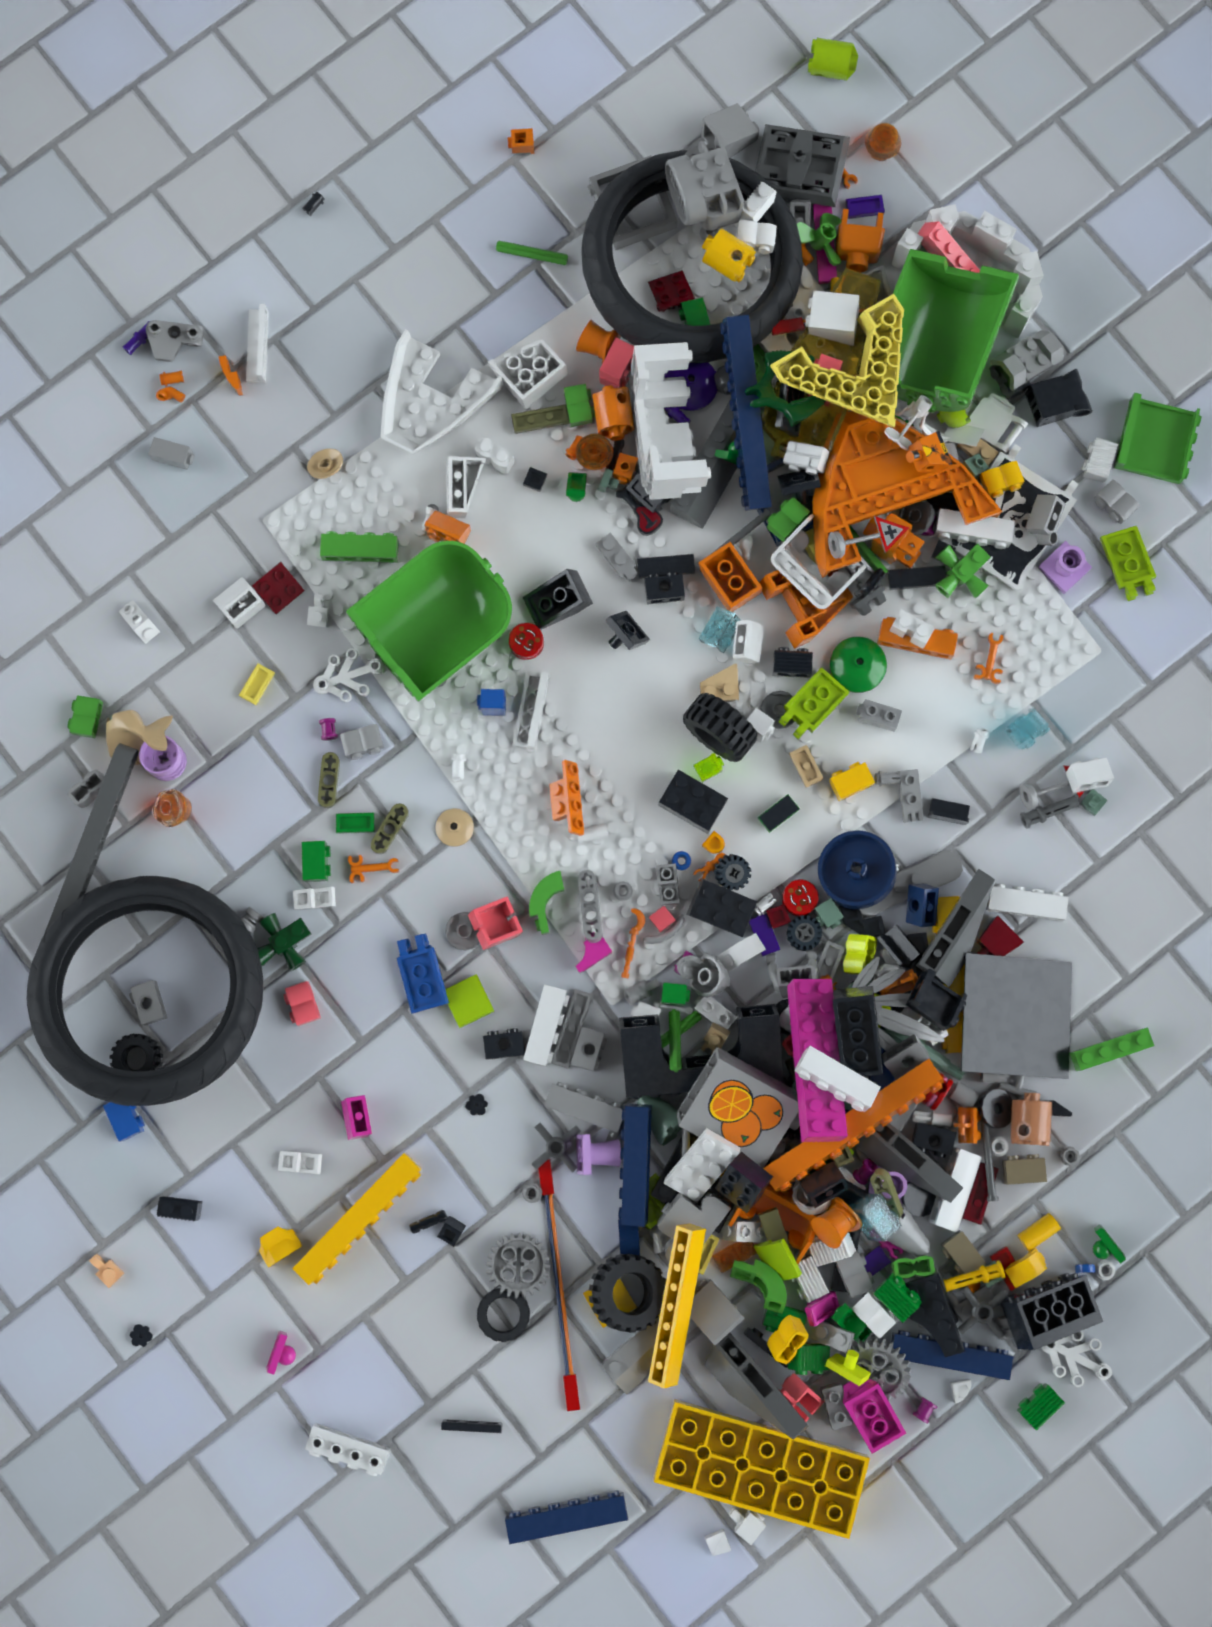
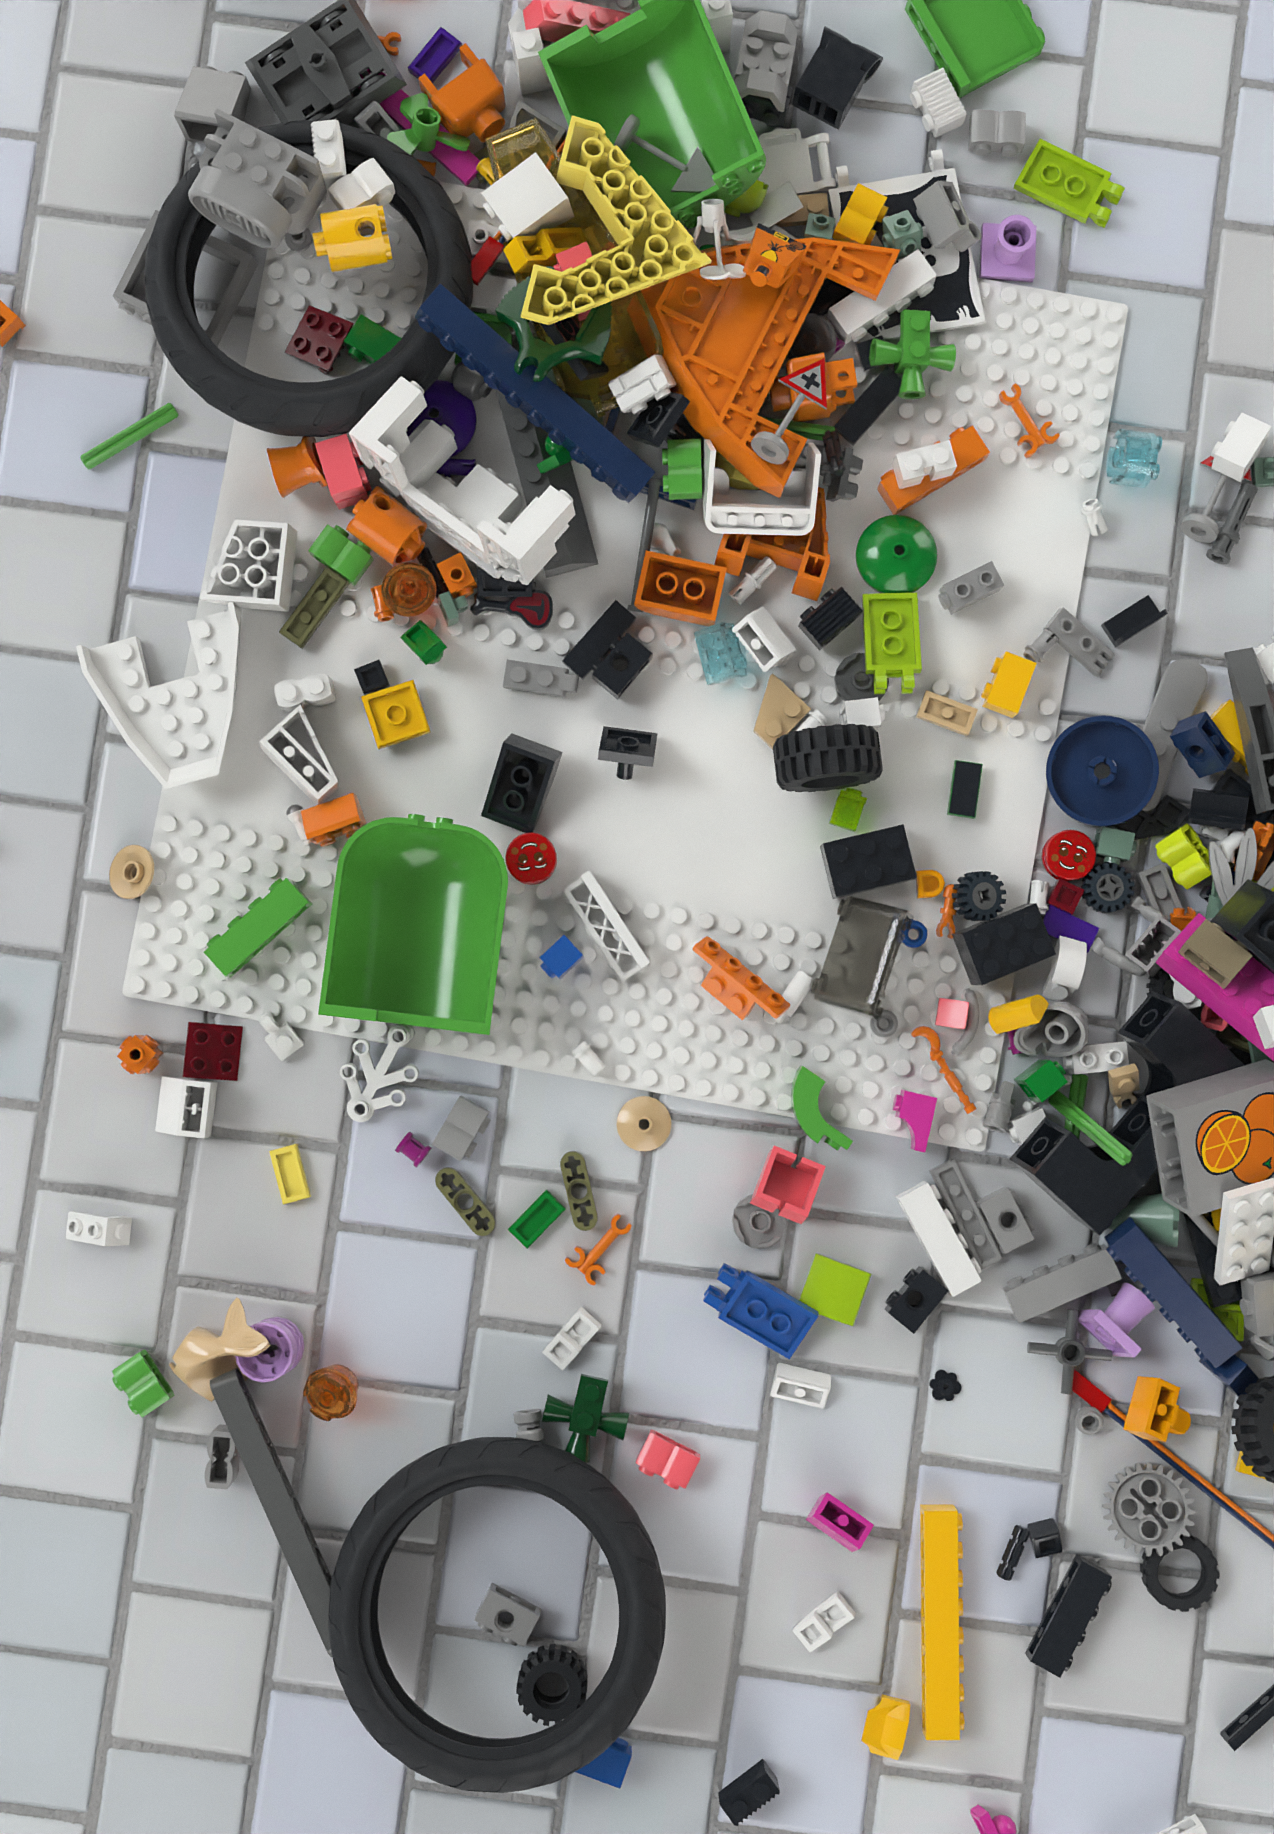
camera: 50 degrees left, 5 degrees up
(246, 559) = (149, 1054): none -> orange brick
(315, 861) = (536, 1300): green brick -> none
(404, 1033) = (801, 1385): none -> white slope
(424, 1280) = (1068, 1616): none -> black brick
(528, 508) = (395, 714): none -> yellow plate
(569, 1219) = (1155, 1411): none -> light orange brick
(590, 906) = (870, 1070): light grey beam -> none
(643, 844) = (861, 956): none -> clear smoke windscreen
(668, 884) = (924, 972): light grey slope -> none
(694, 947) = (1017, 1013): none -> yellow brick
(772, 608) = (753, 580): none -> white axle
(816, 344) = (541, 248): none -> yellow slope
(816, 1001) = (1215, 953): none -> dark tan brick
(933, 378) = (695, 175): none -> light grey piece
(1014, 506) = (902, 233): none -> sand green brick

